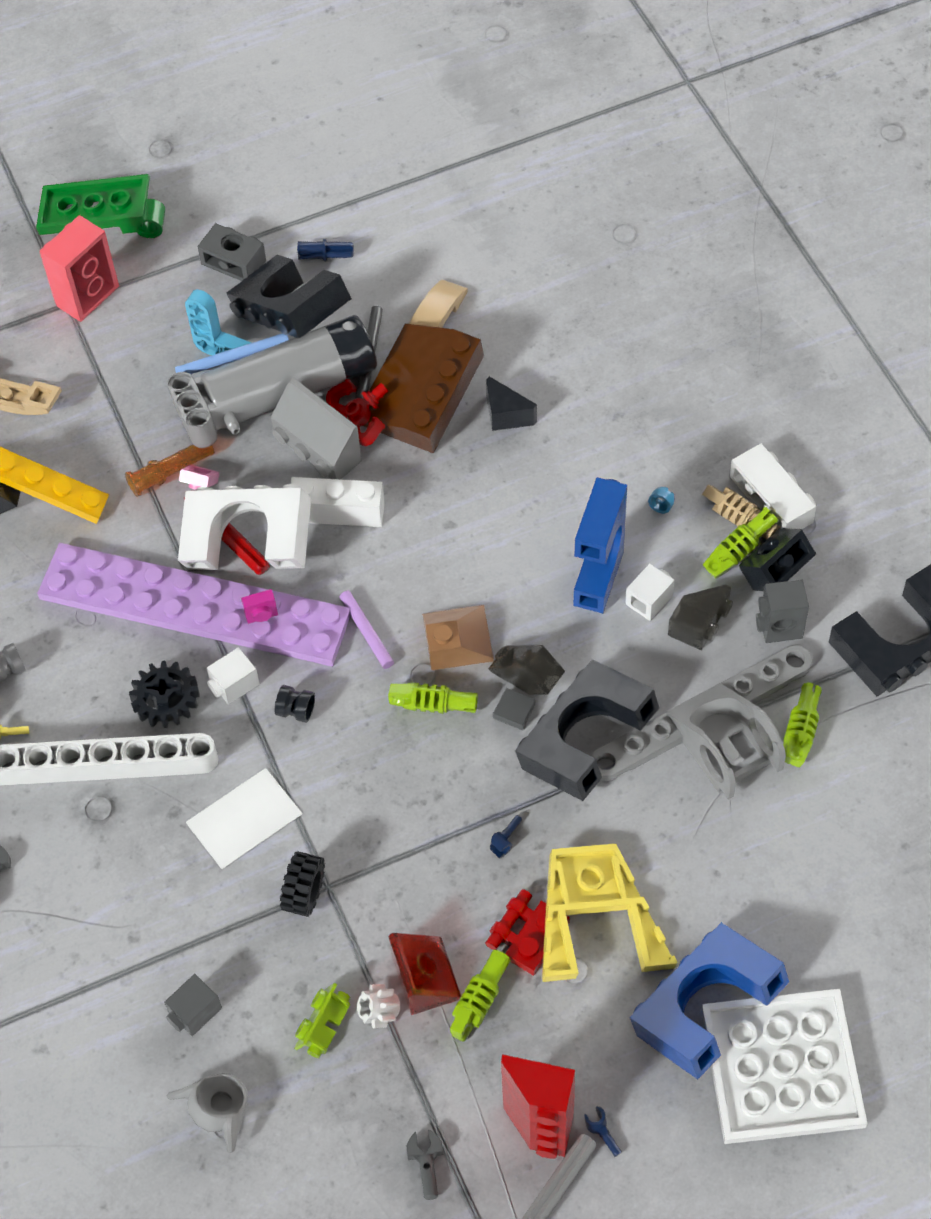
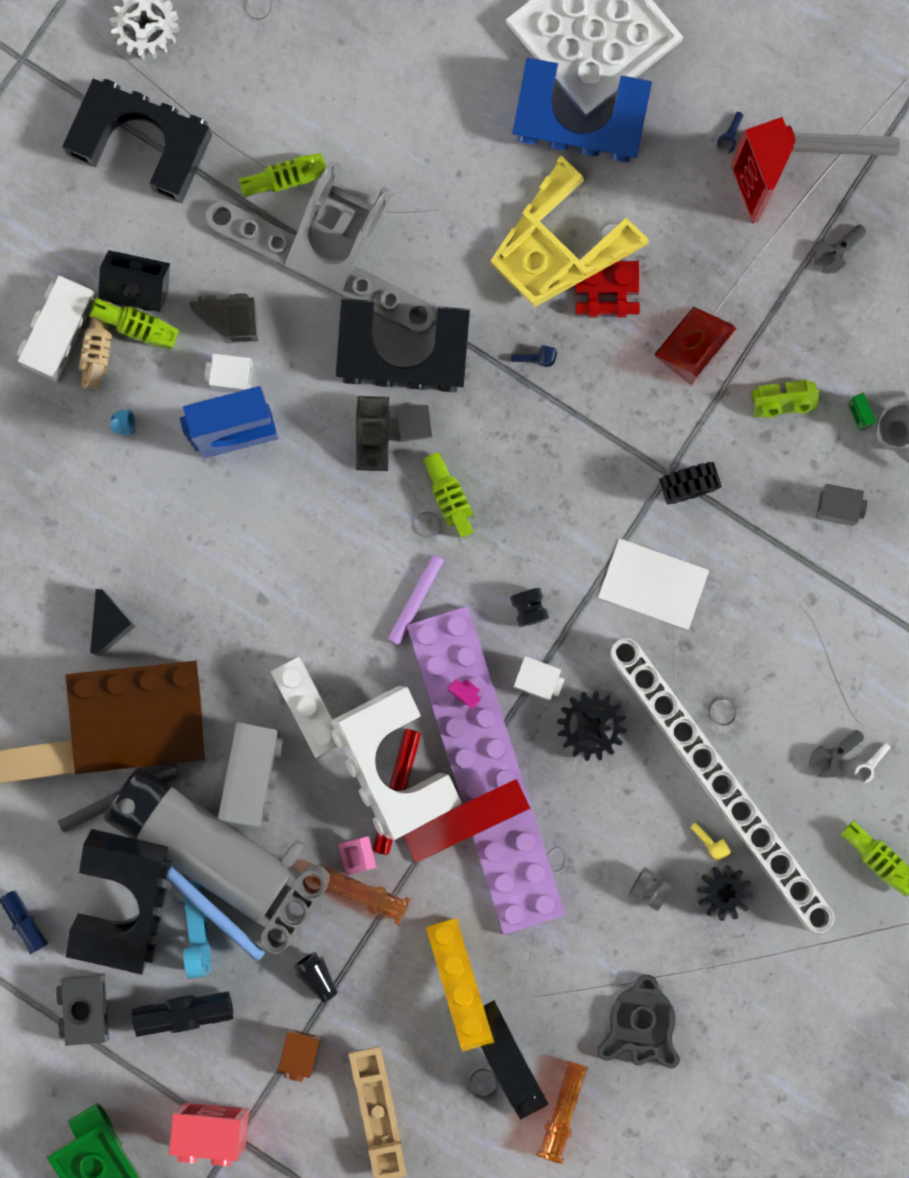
camera: 125 degrees left, 25 degrees up
(89, 364) = (299, 1055): none -> dark orange brick
(135, 404) = (315, 975): none -> black cone
(159, 564) = (467, 820): none -> red slope
(173, 310) = (182, 1014): none -> black piece
(260, 1078) = (861, 411): none -> green tile
(358, 409) = (203, 756): red piece -> none
(378, 1006) = (747, 359): white gear -> none
(457, 637) = (374, 516): medium nougat slope -> none
(478, 996) = (686, 290): lime hinge -> none
(782, 611) = (188, 243): dark grey brick -> none

